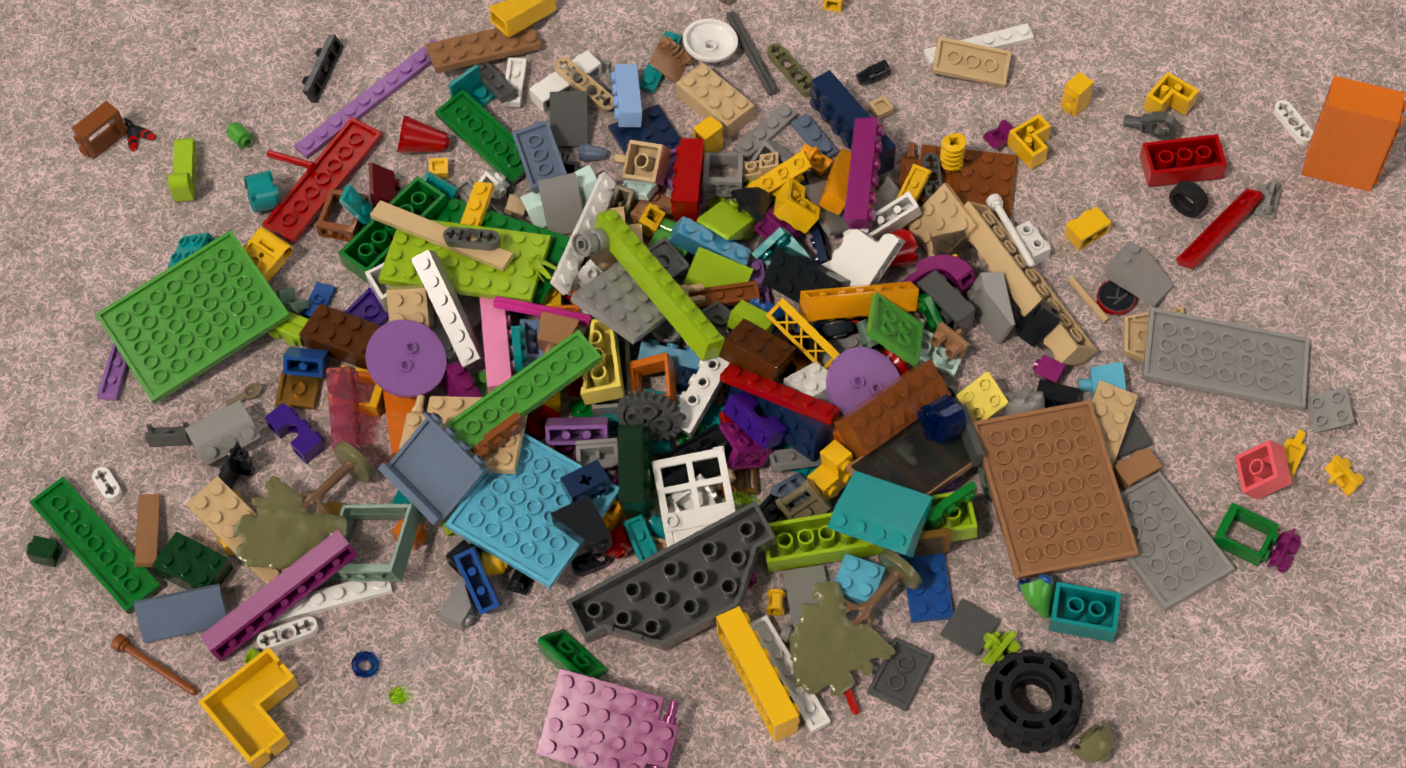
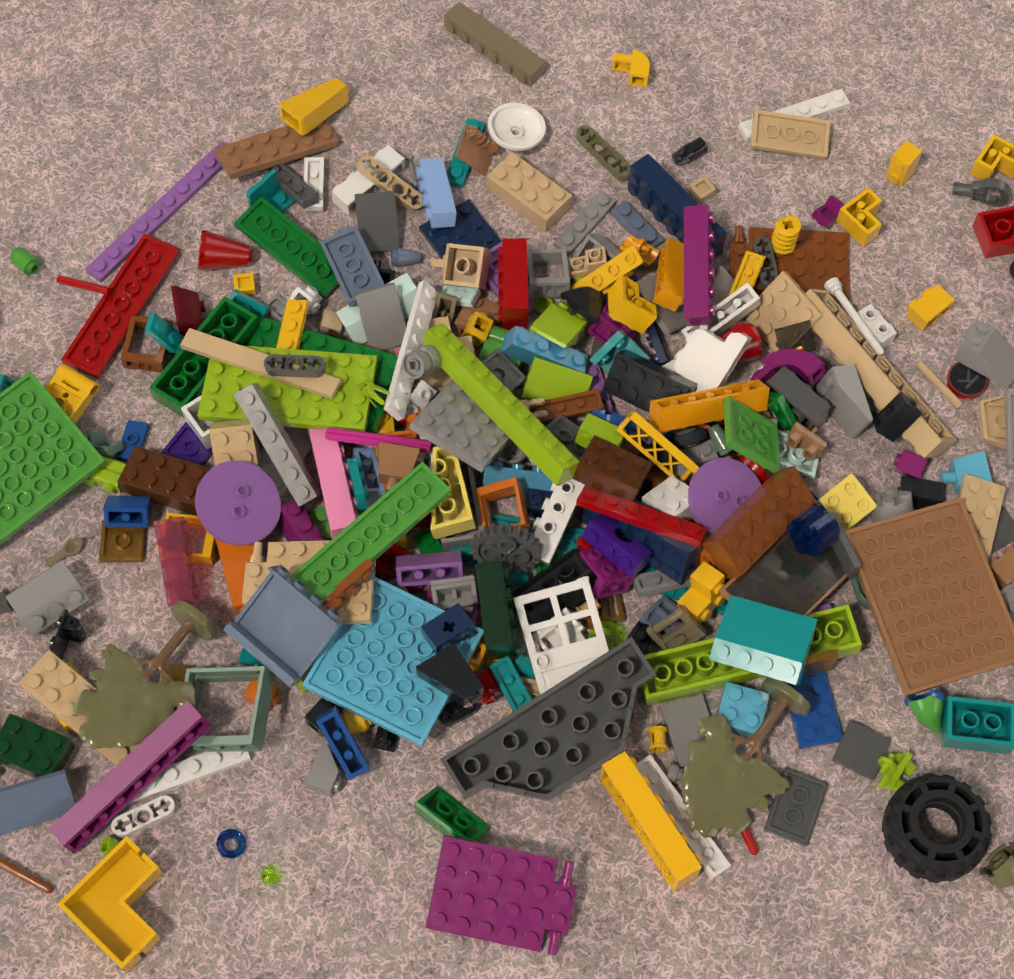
camera: 10 degrees left, 5 degrees up
(261, 191) = (56, 323): teal brick -> none
(285, 421) = (112, 578): dark purple arch -> none
(327, 58) = (106, 181): black hinge -> none
(712, 133) = (529, 227): yellow brick -> none
(751, 53) = (560, 138): dark grey axle -> none
(951, 503) = (832, 623): green hinge -> none

